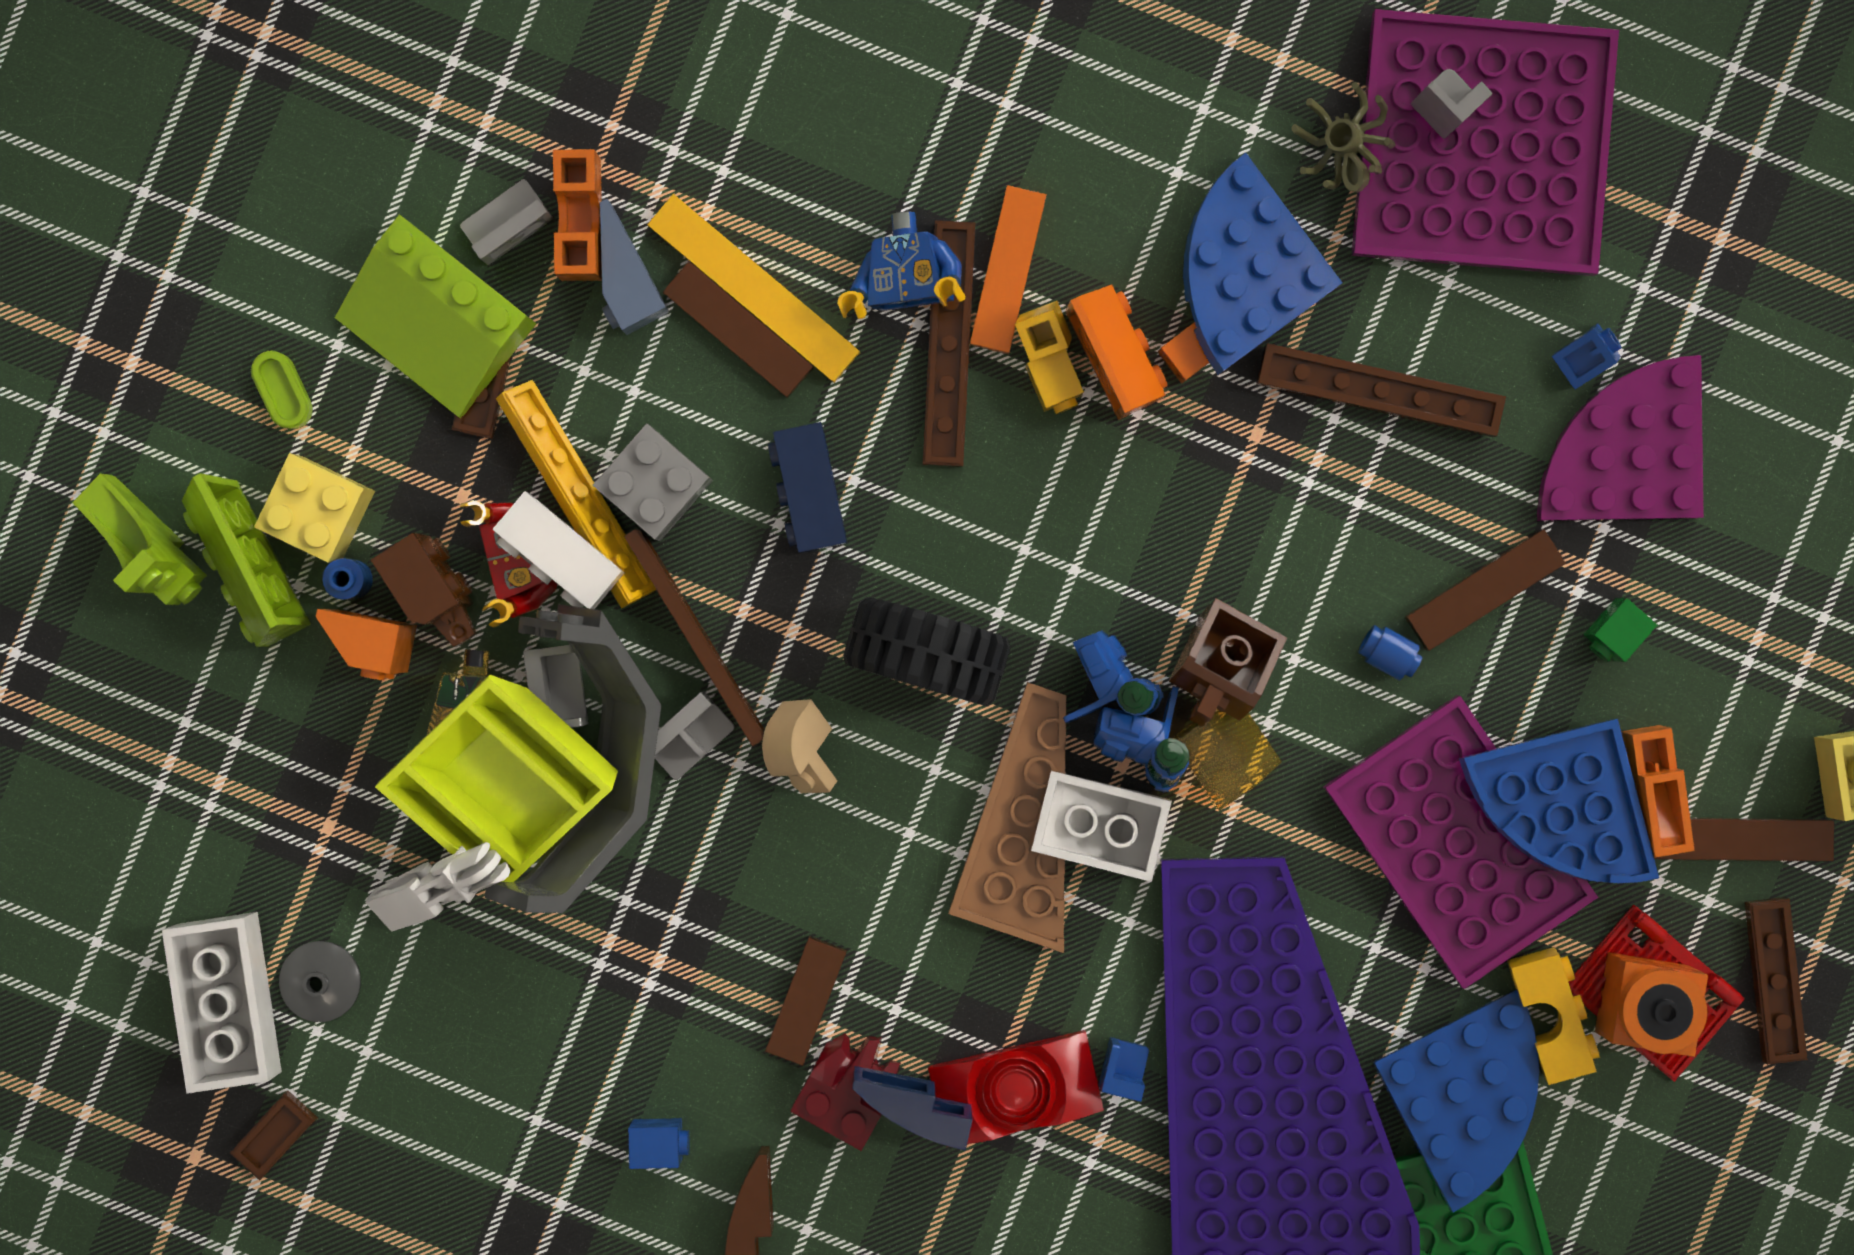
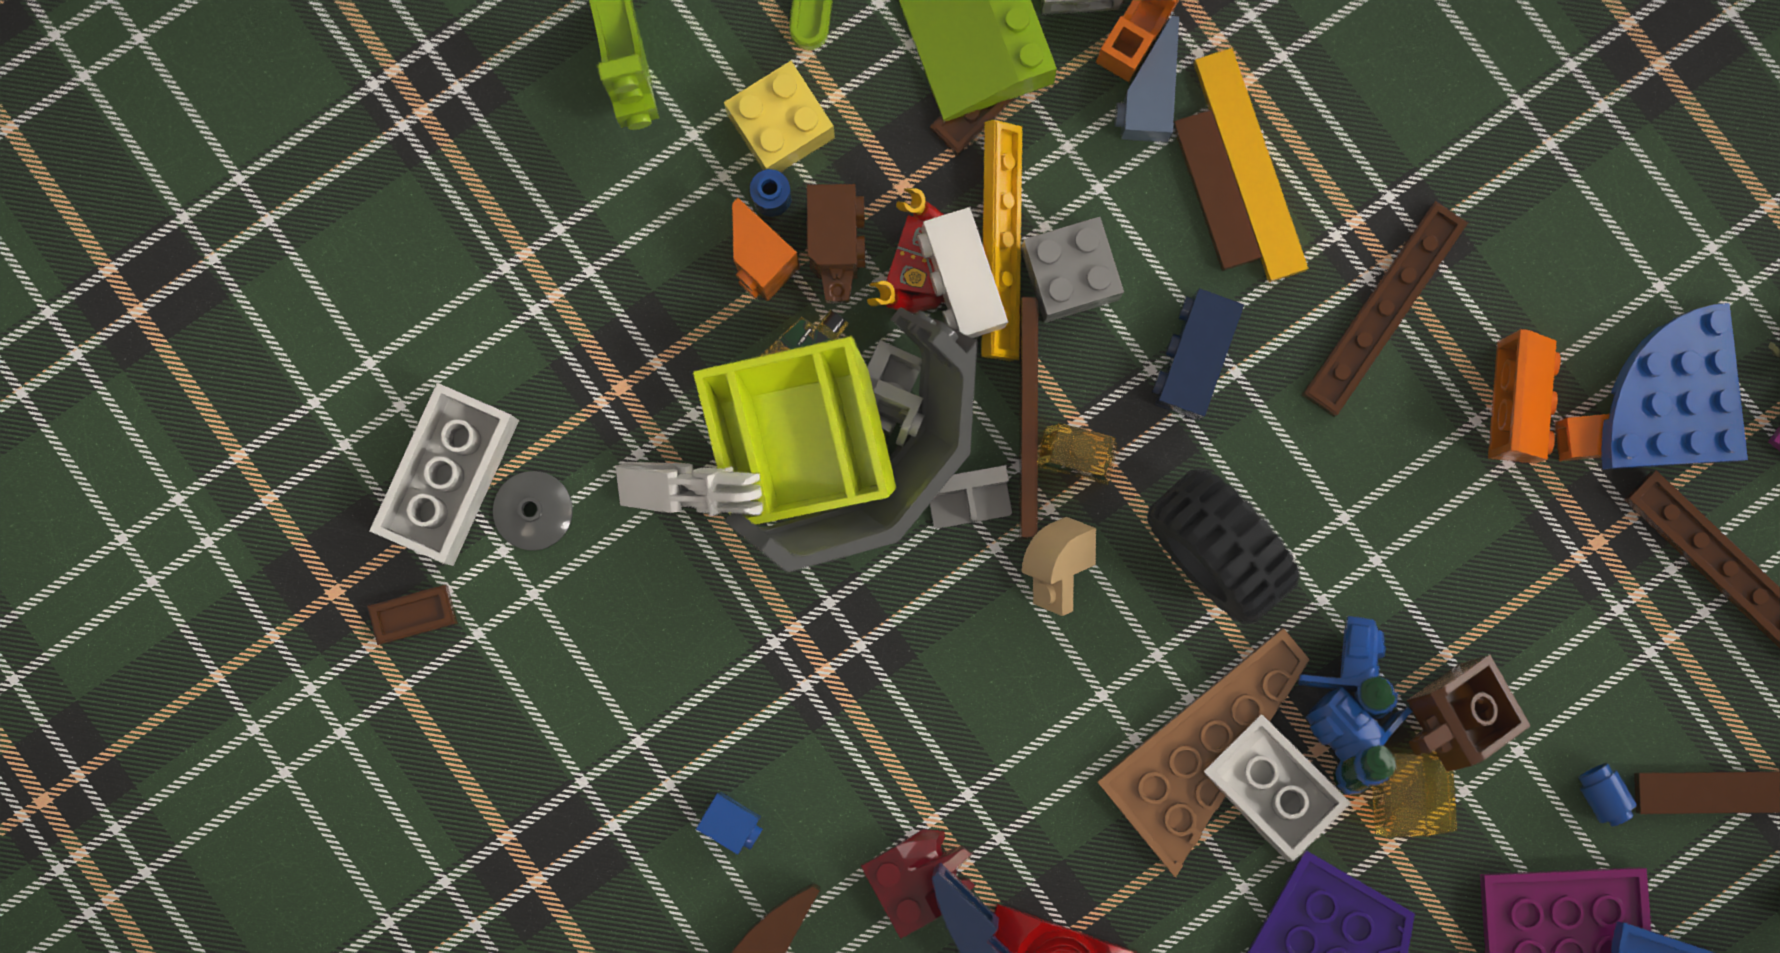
camera: 30 degrees right, 5 degrees down
(243, 560) = (694, 123): lime slope -> none
(577, 696) = (899, 406): none -> light grey bracket
(759, 640) = (1078, 452): none -> clear yellow torso
(806, 1000) = (929, 781): reddish brown tile -> none
(904, 271) = (1388, 226): blue torso -> none
(1008, 269) = (1471, 278): orange tile -> none
(1043, 331) = (1475, 344): yellow brick -> none
(1055, 382) = (1457, 392): yellow brick -> none

